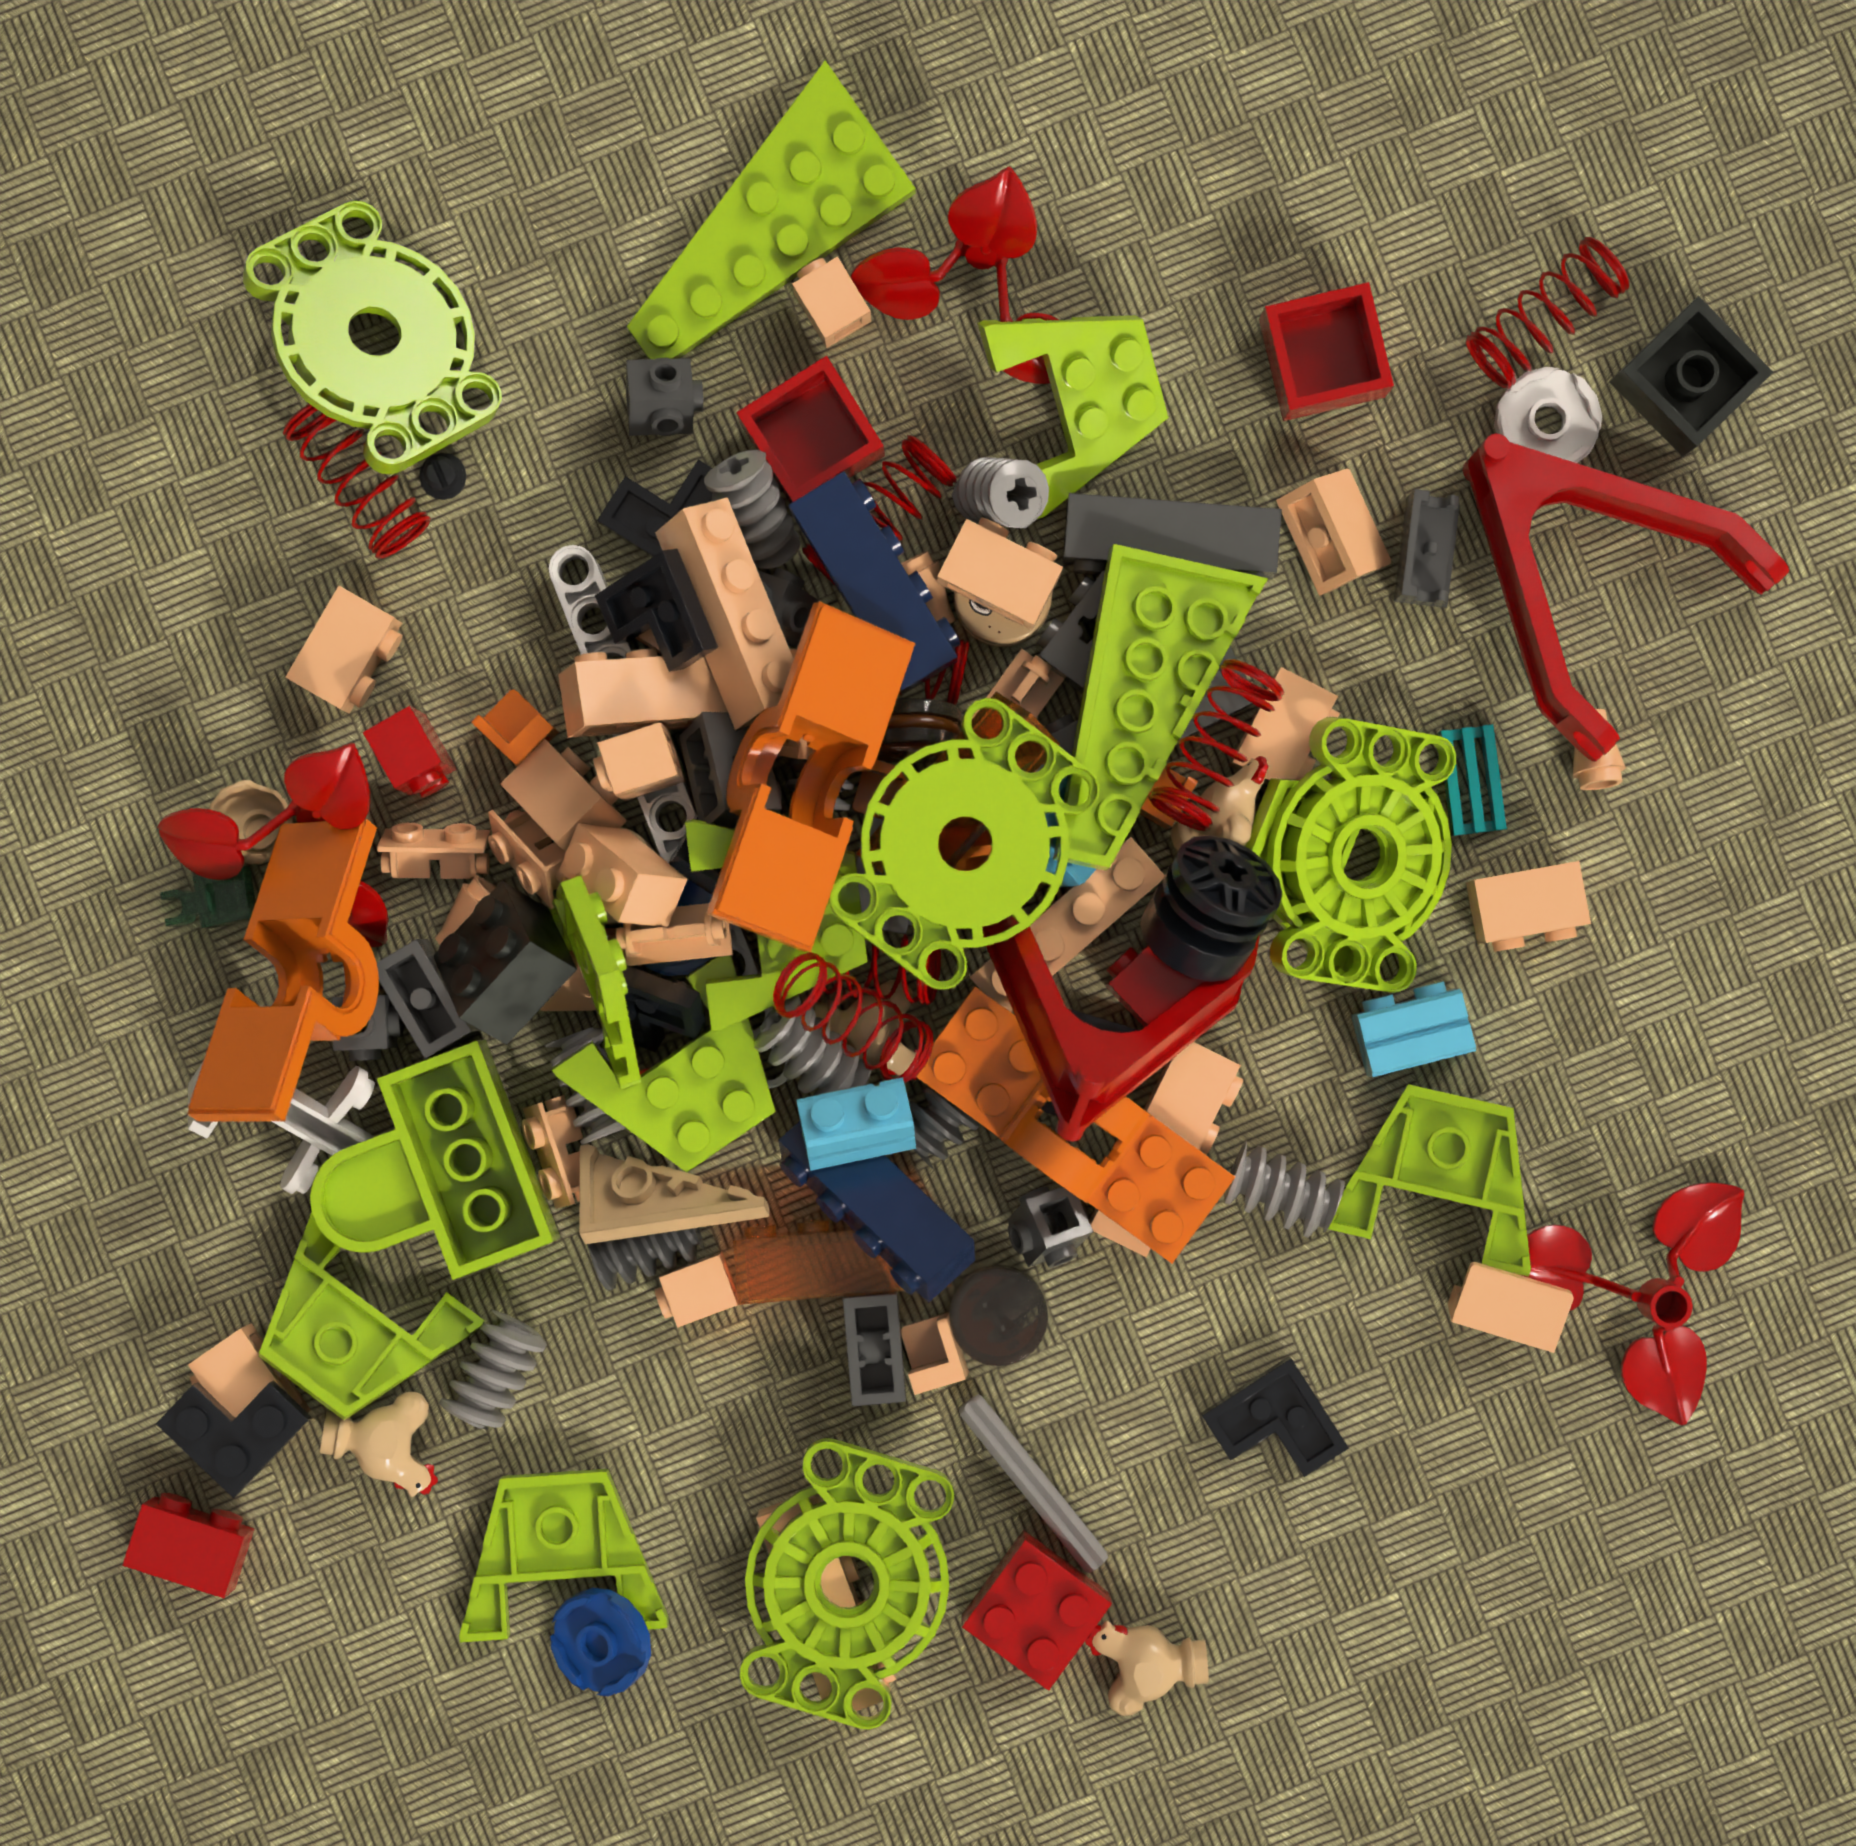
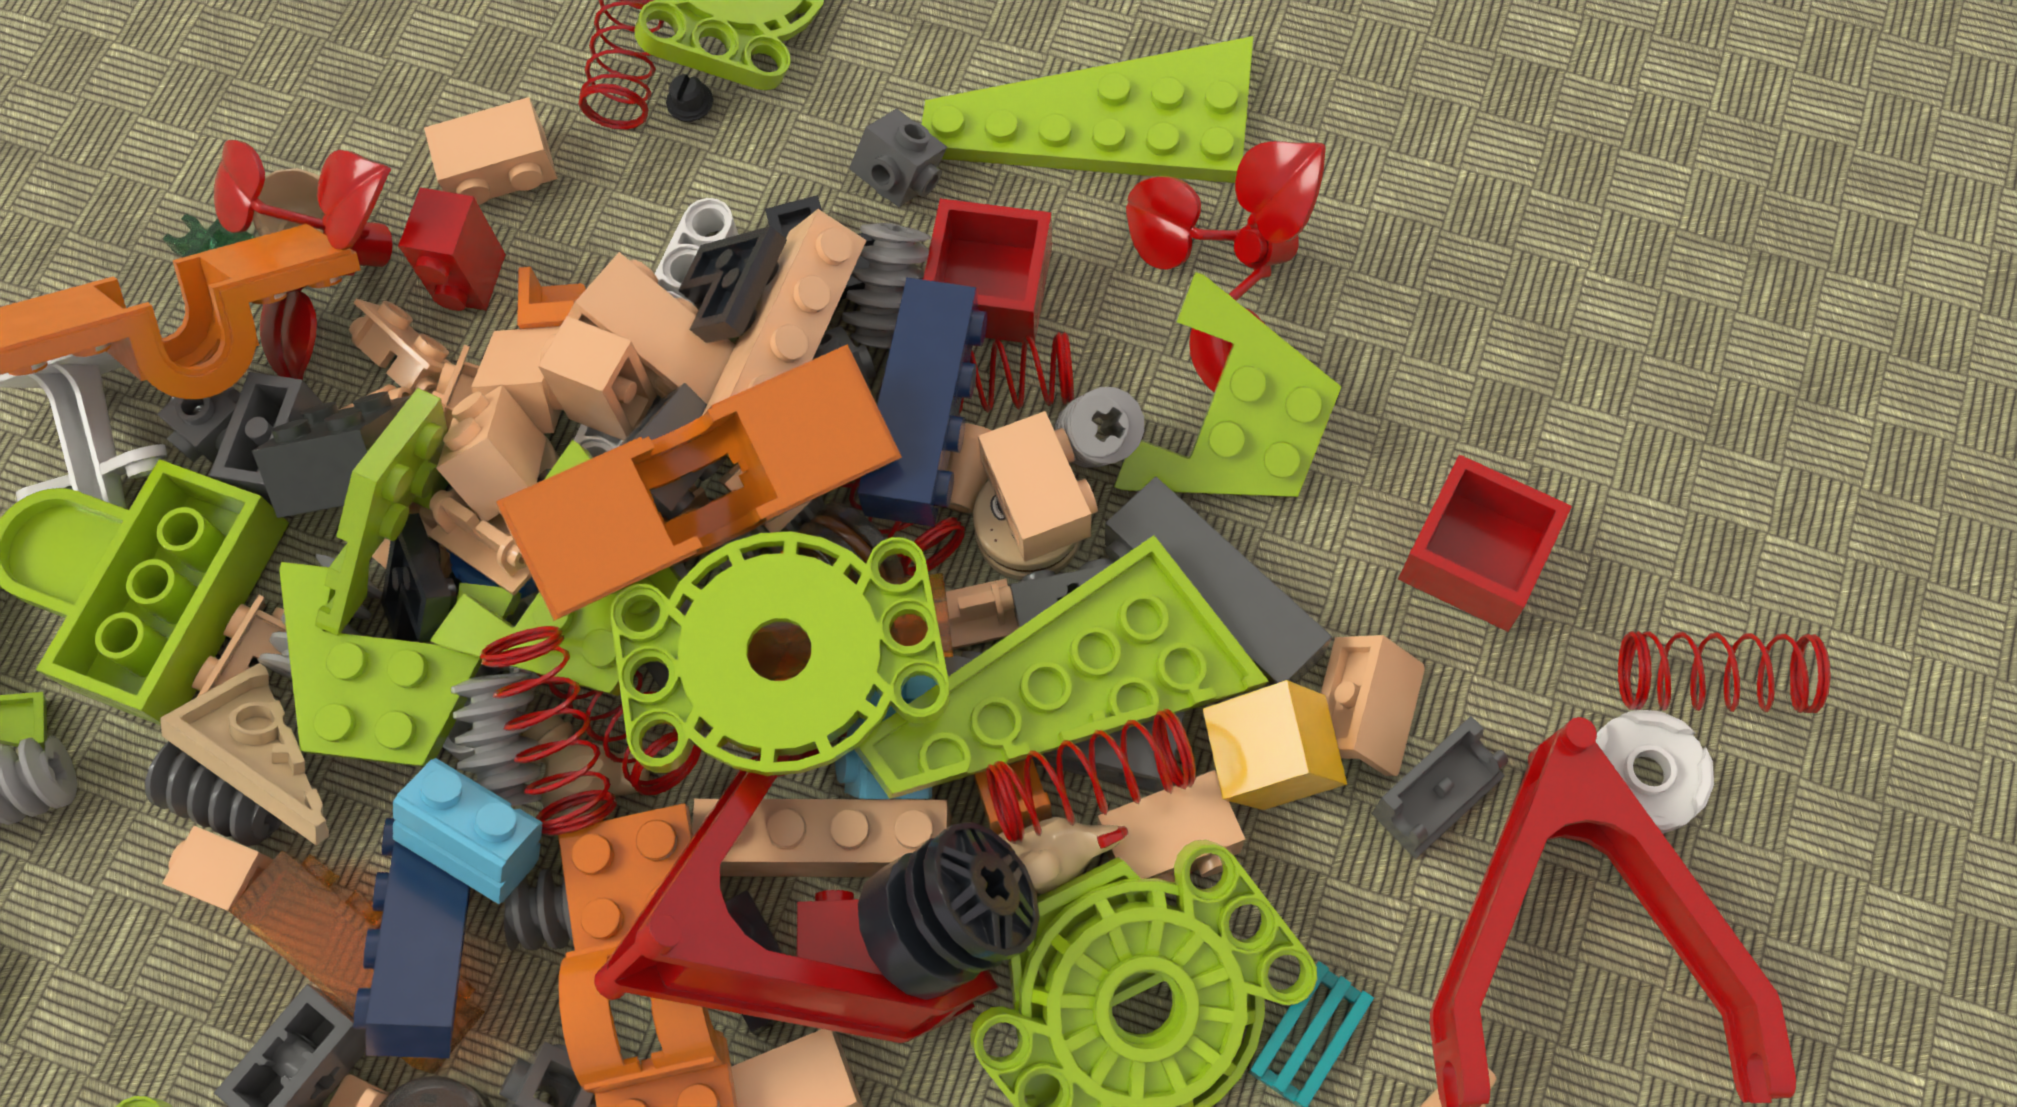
camera: 45 degrees right, 20 degrees down
(830, 300) = (1097, 198): light nougat brick -> none
(1306, 618) = (1274, 746): none -> yellow head
(1691, 377) = (1825, 833): pearl dark grey brick -> none

